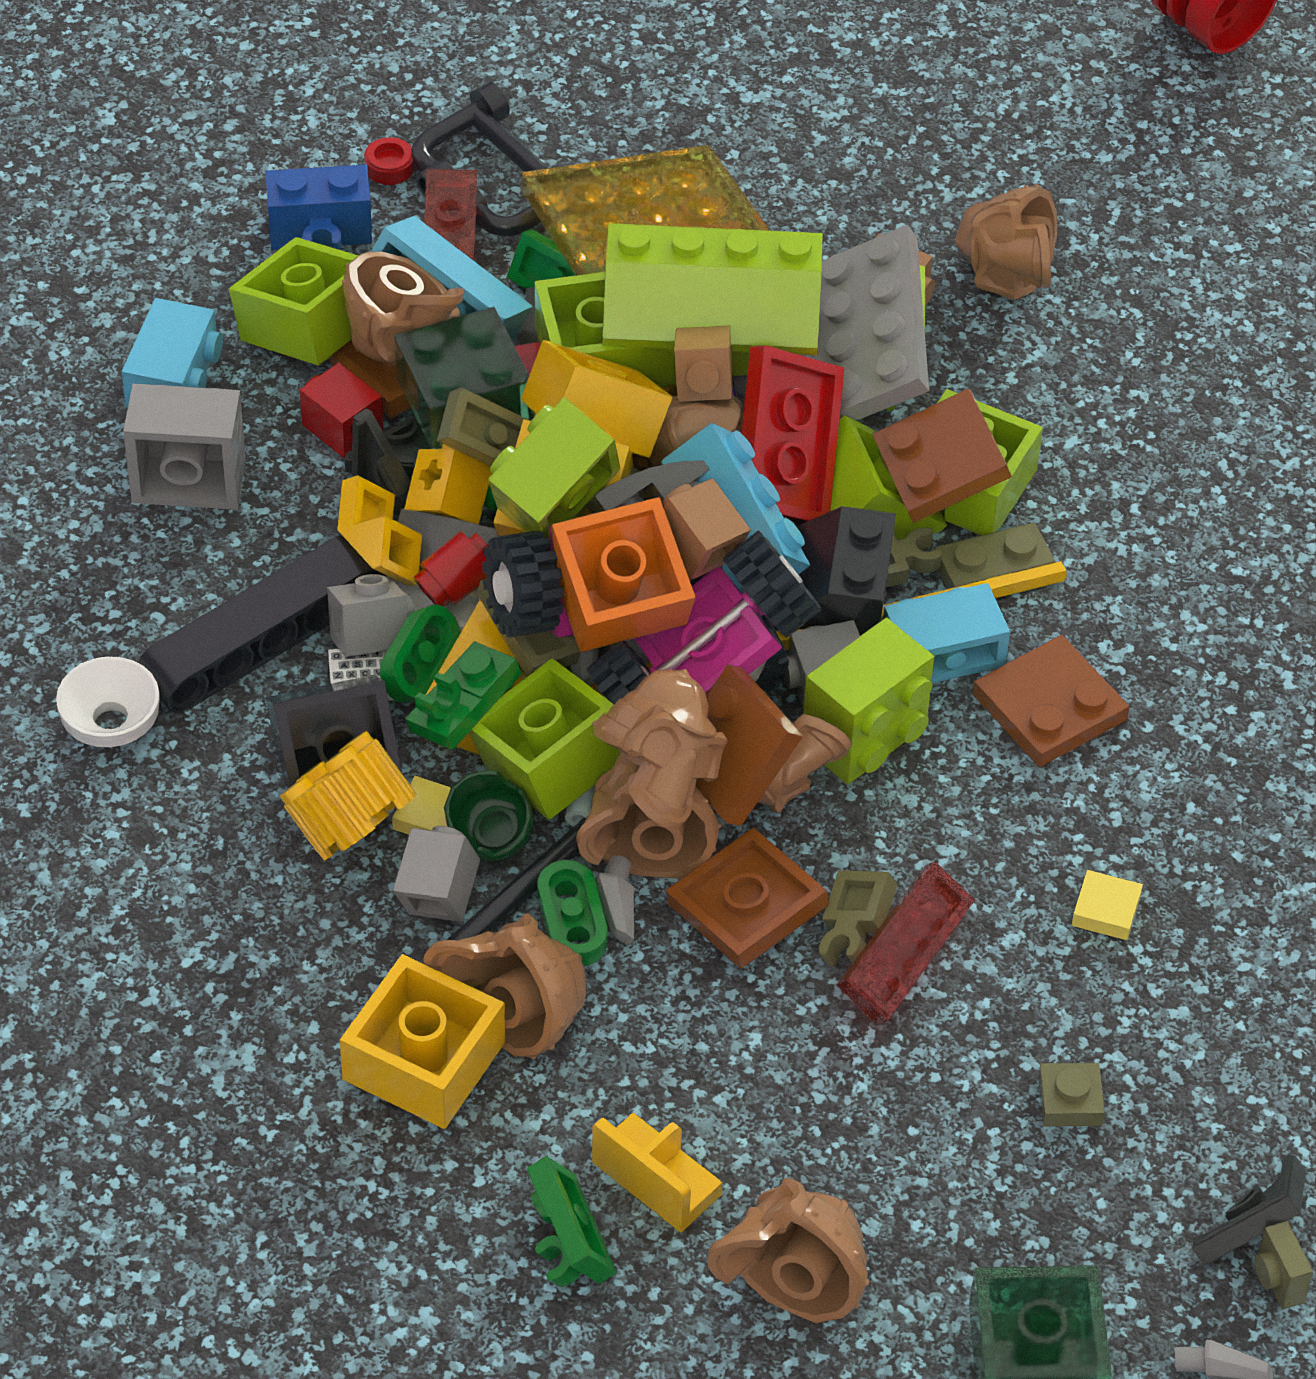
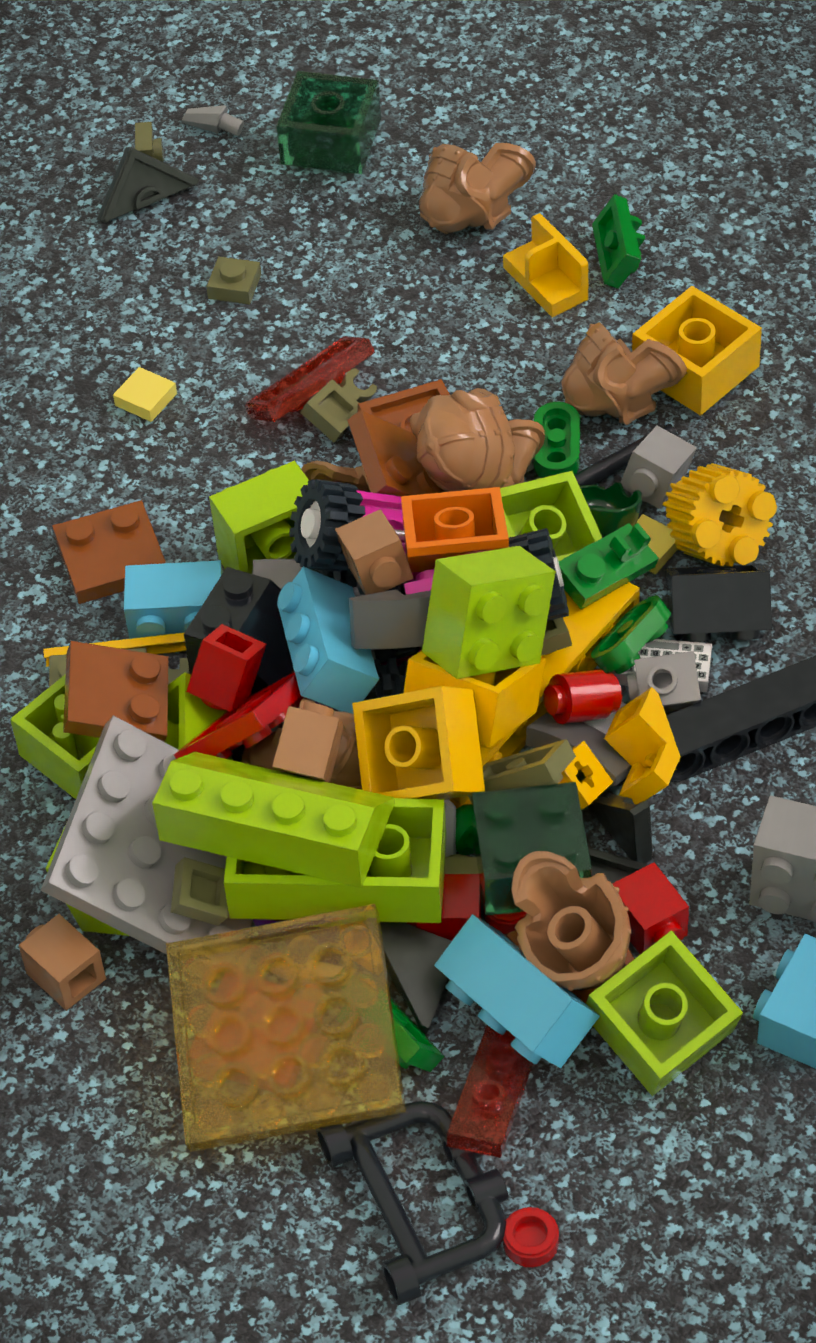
camera: 160 degrees left, 0 degrees up
(319, 205) = (624, 1152): blue brick -> none
(832, 478) = (226, 668): none -> red brick

